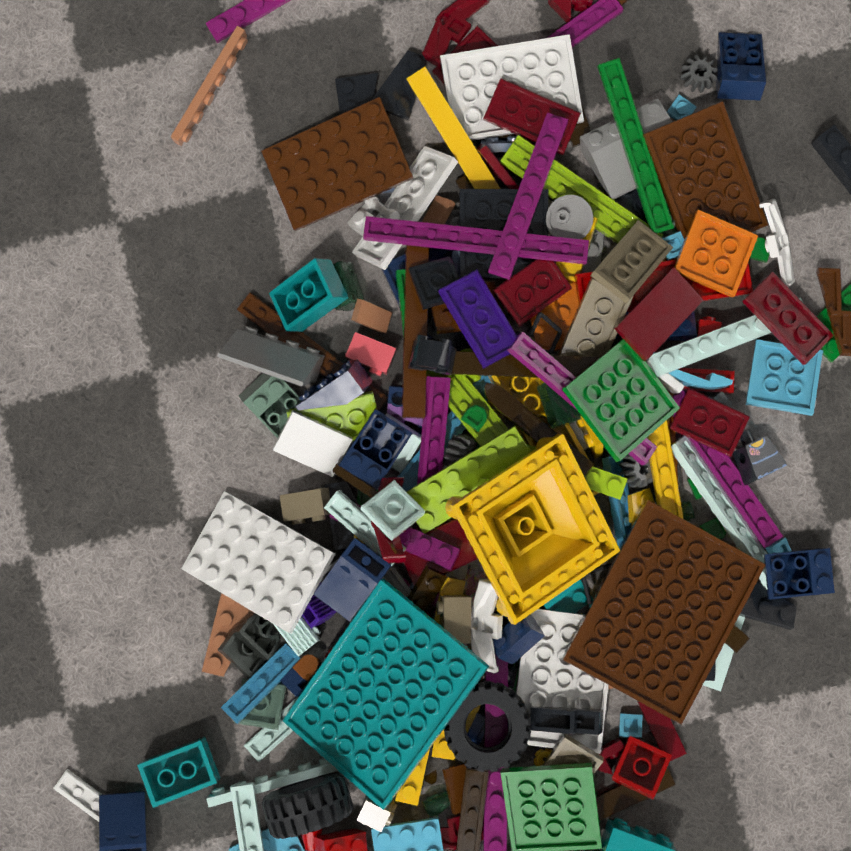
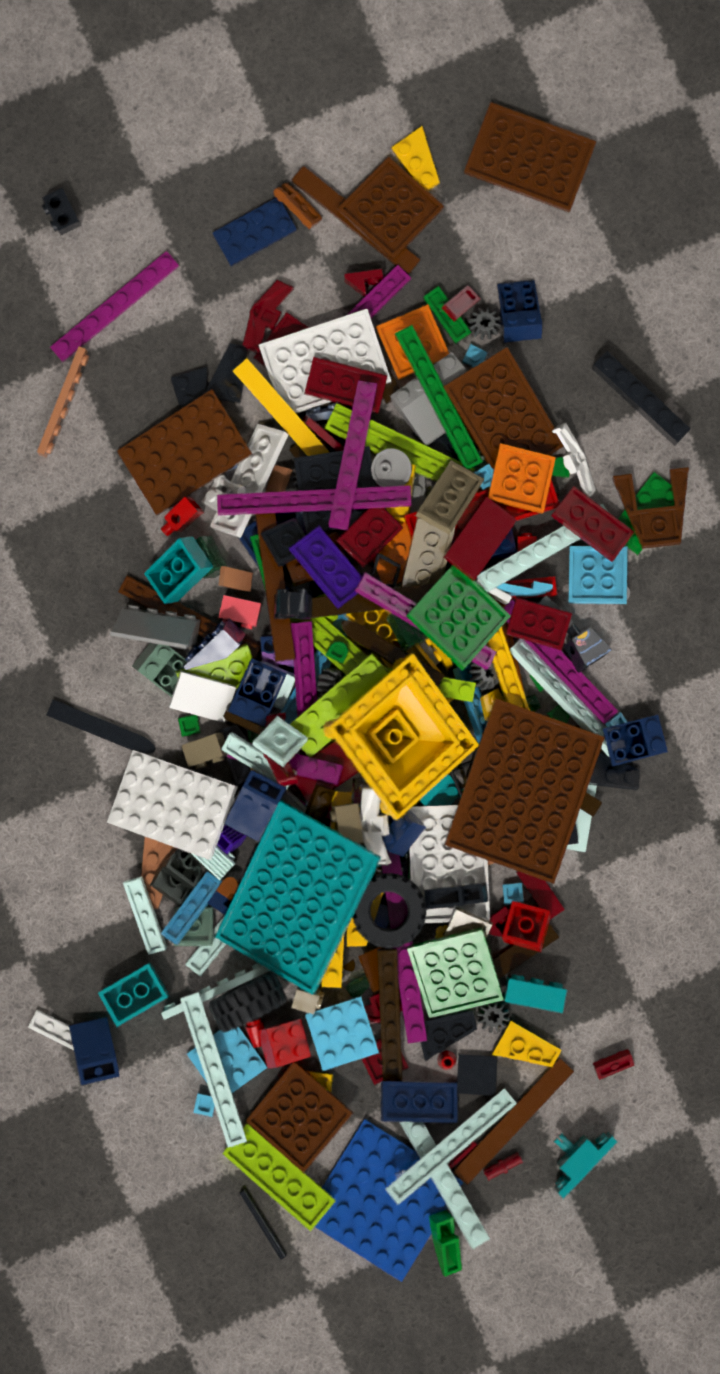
camera: 10 degrees left, 0 degrees up
(191, 460) = (100, 728): none -> black piece
(206, 682) = (145, 915): none -> light aqua tile
(292, 473) = (189, 725): none -> green tile
(330, 232) = (188, 512): none -> red torso
(592, 85) = (427, 332): none -> orange plate
(657, 58) = (456, 330): none -> green plate
(675, 46) = (461, 303): none -> dark red tile

